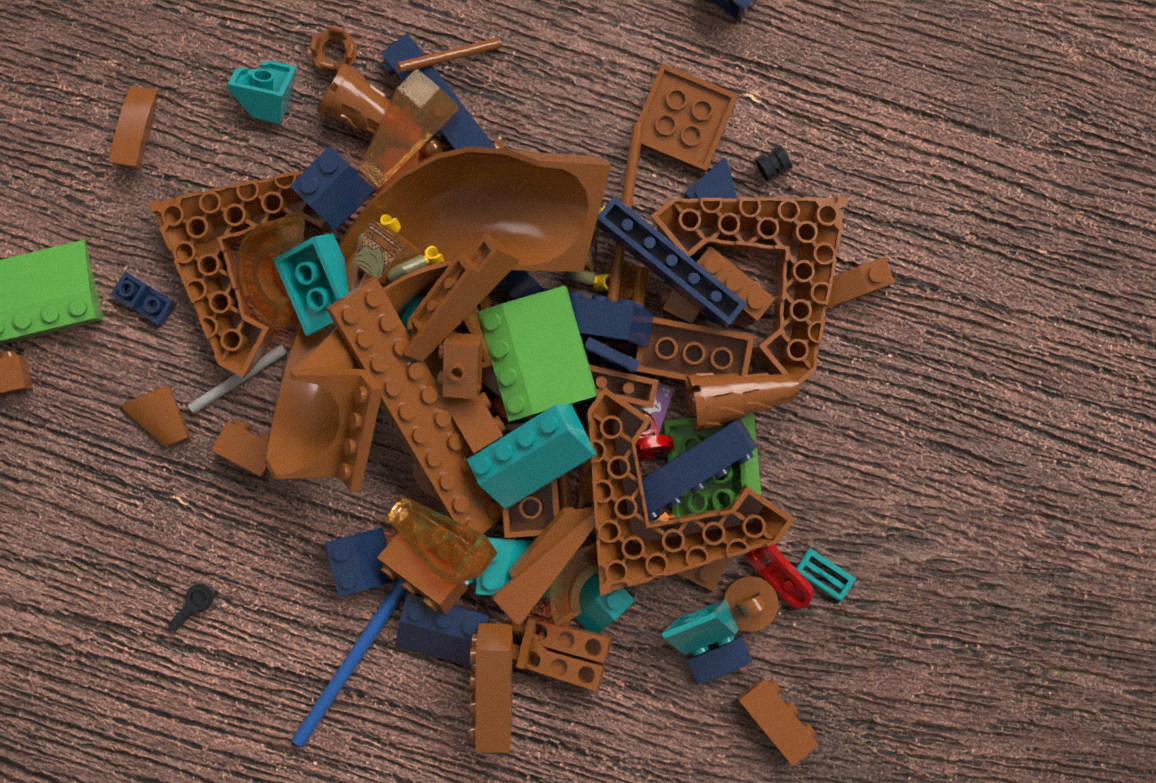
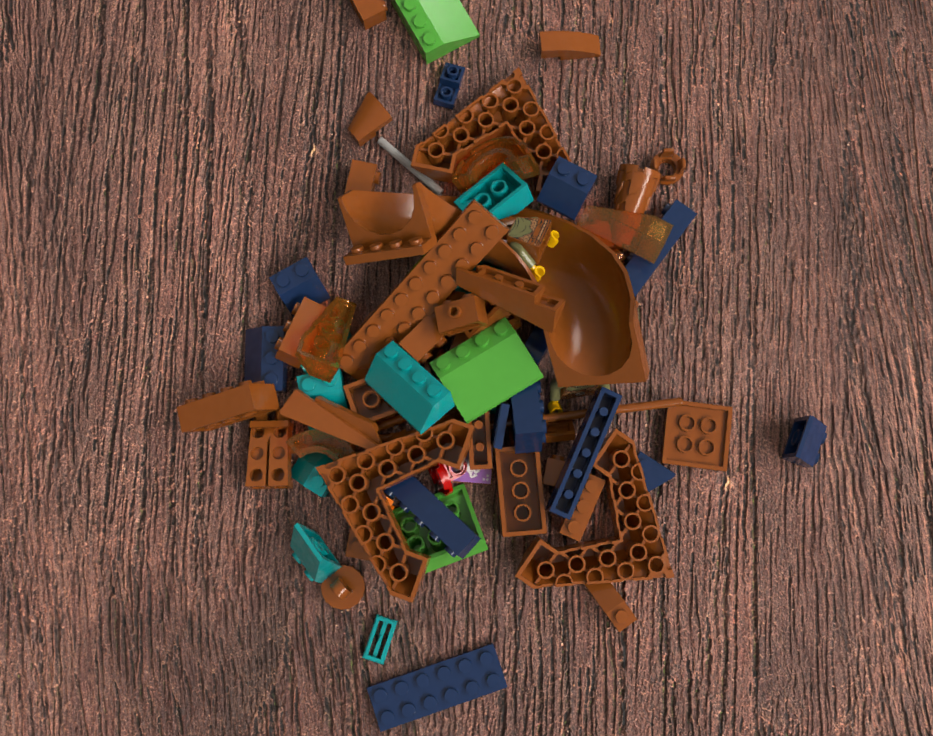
camera: 80 degrees right, 5 degrees down
(198, 598) = (244, 181): black plate -> none
(264, 90) = (622, 126): teal slope -> none
(349, 664) = (222, 300): blue piece -> none
(448, 55) = (689, 248): dark orange bar -> none
(719, 660) = (293, 575): dark blue slope -> none
(733, 396) = (495, 529): dark orange cone -> none
(774, 163) = (682, 513): black wheel -> none
(778, 720) = (259, 633): dark orange brick -> none
(782, 575) = (369, 607): red plate -> none
(899, 520) = (436, 687): none -> dark blue plate

